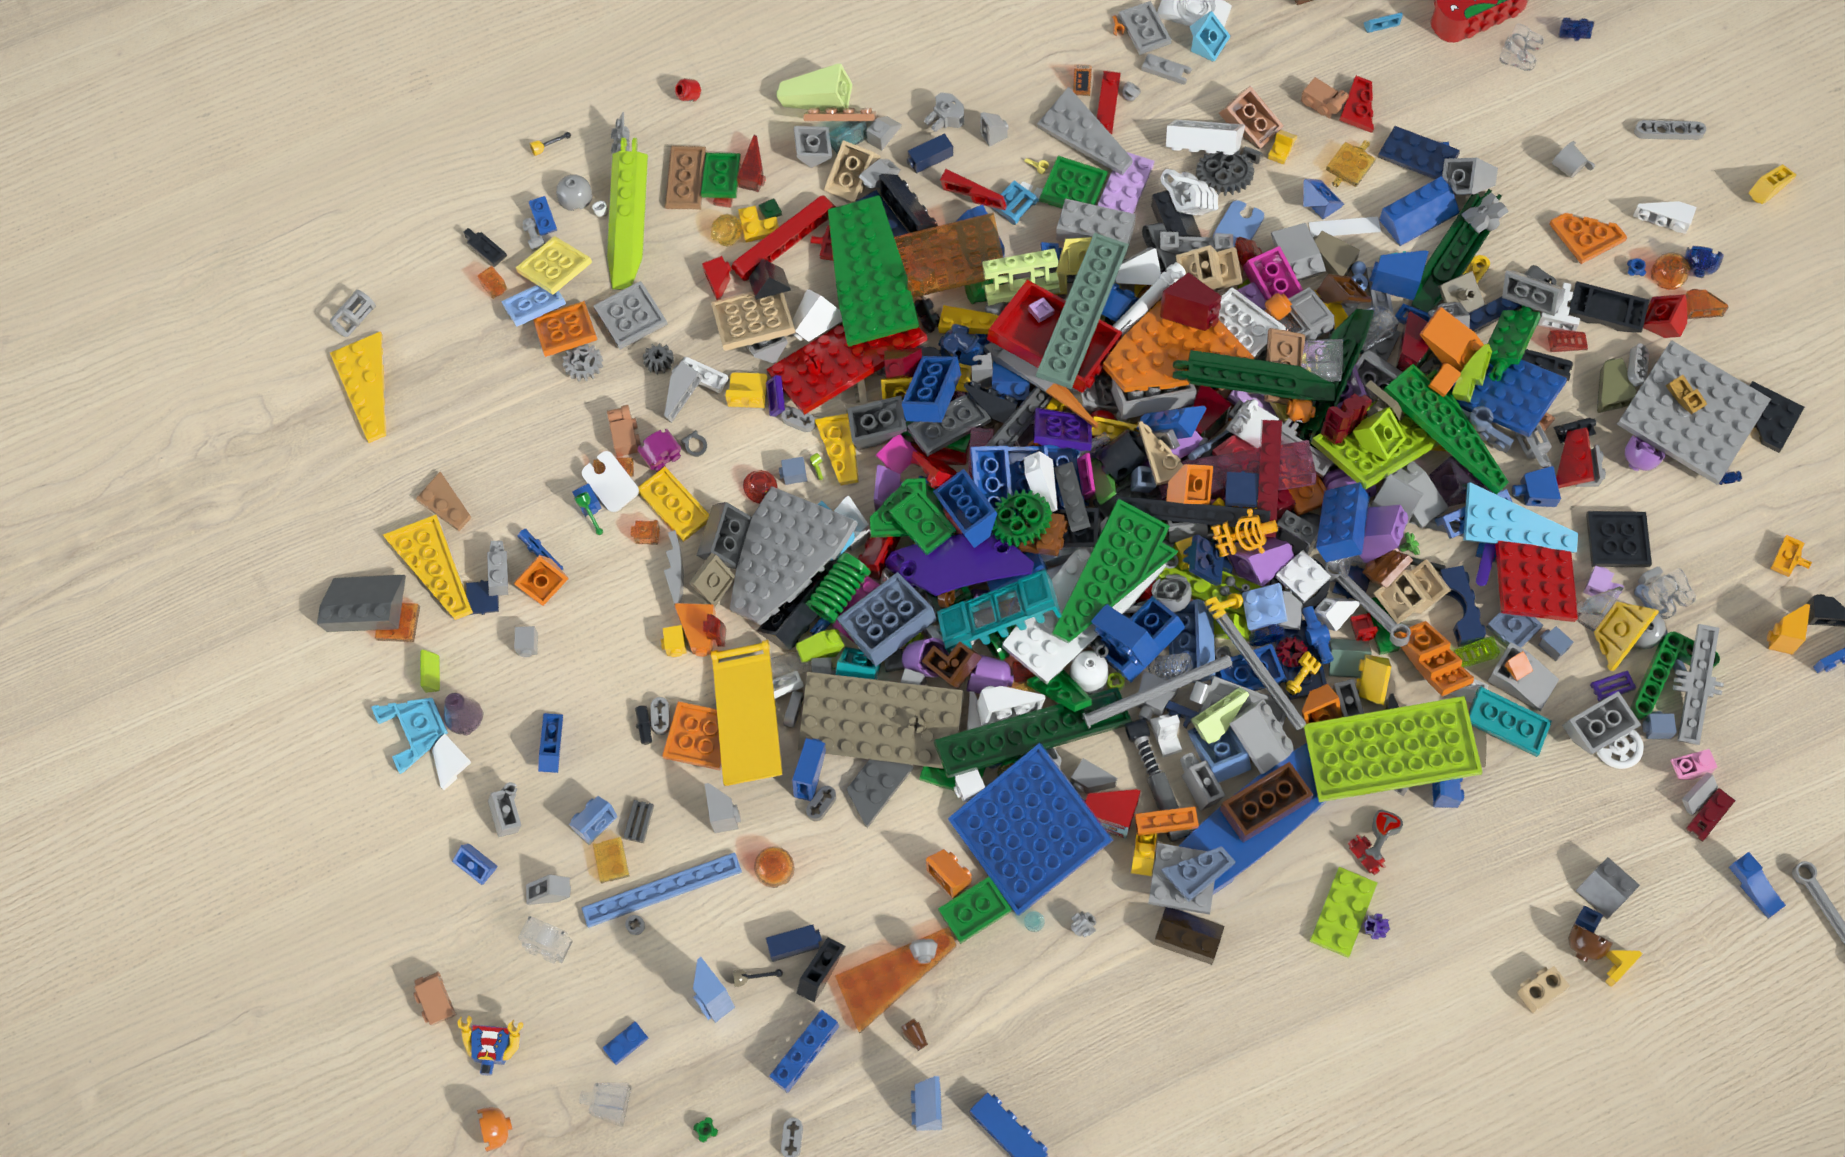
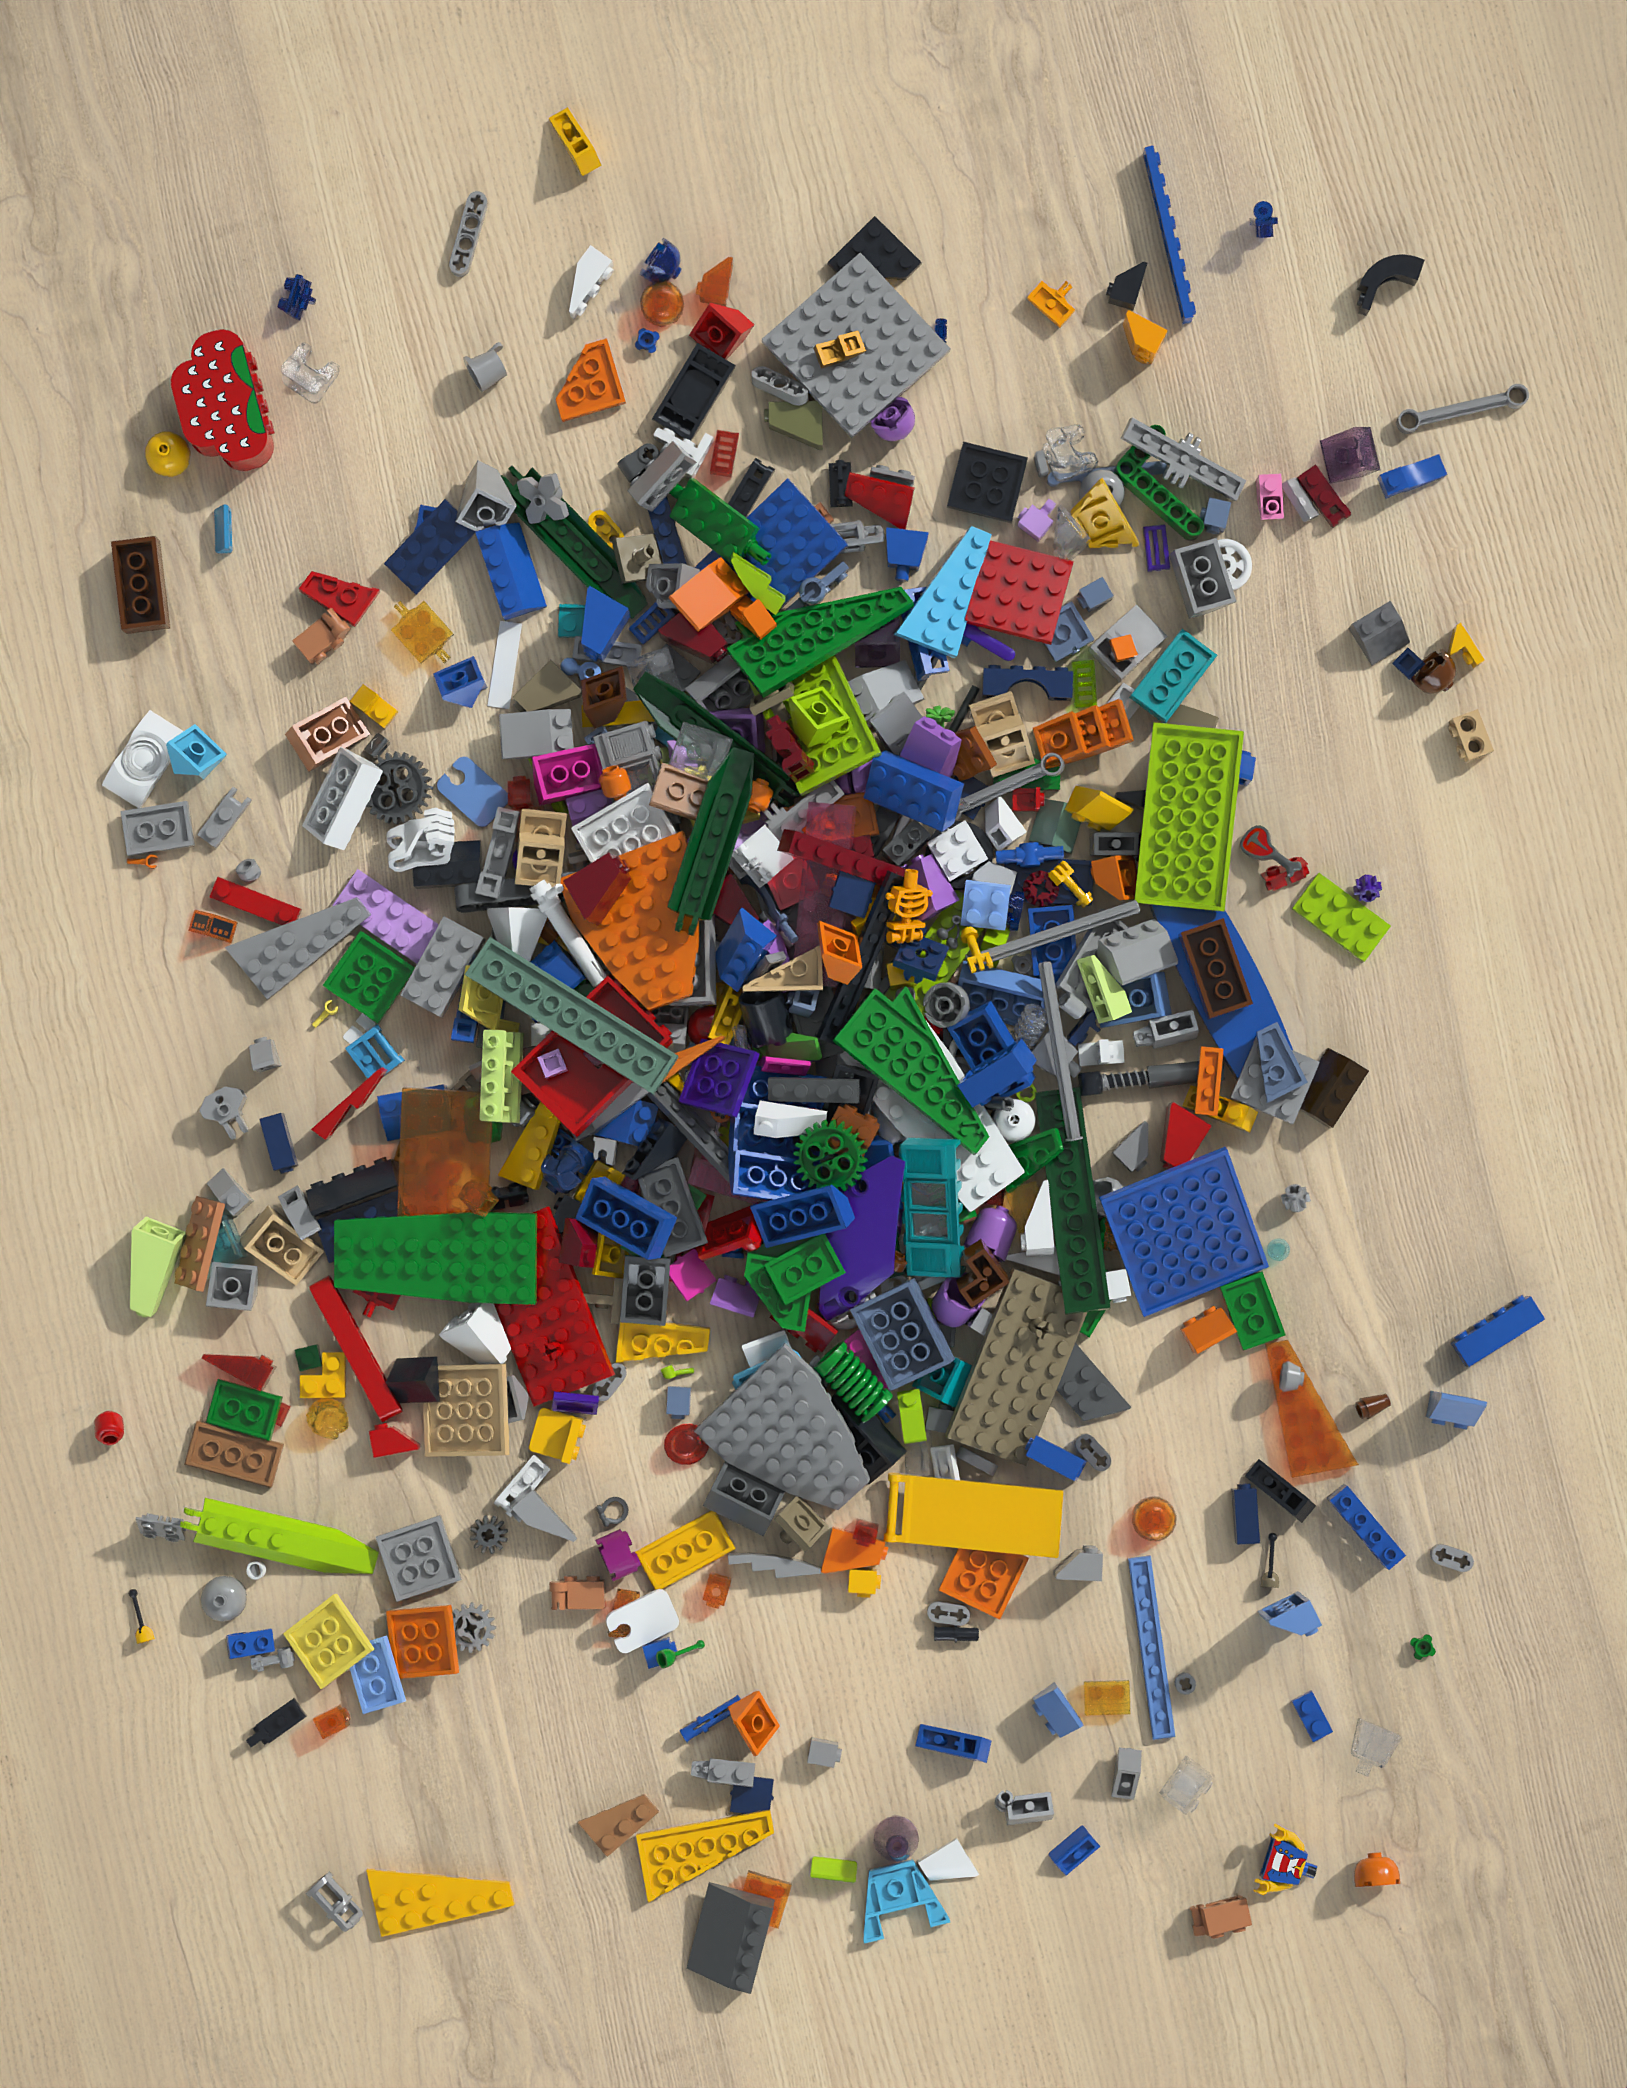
camera: 75 degrees left, 20 degrees up
(642, 805) = (1085, 1667): dark grey tile -> none
(1756, 827) = (1350, 454): none -> clear purple slope

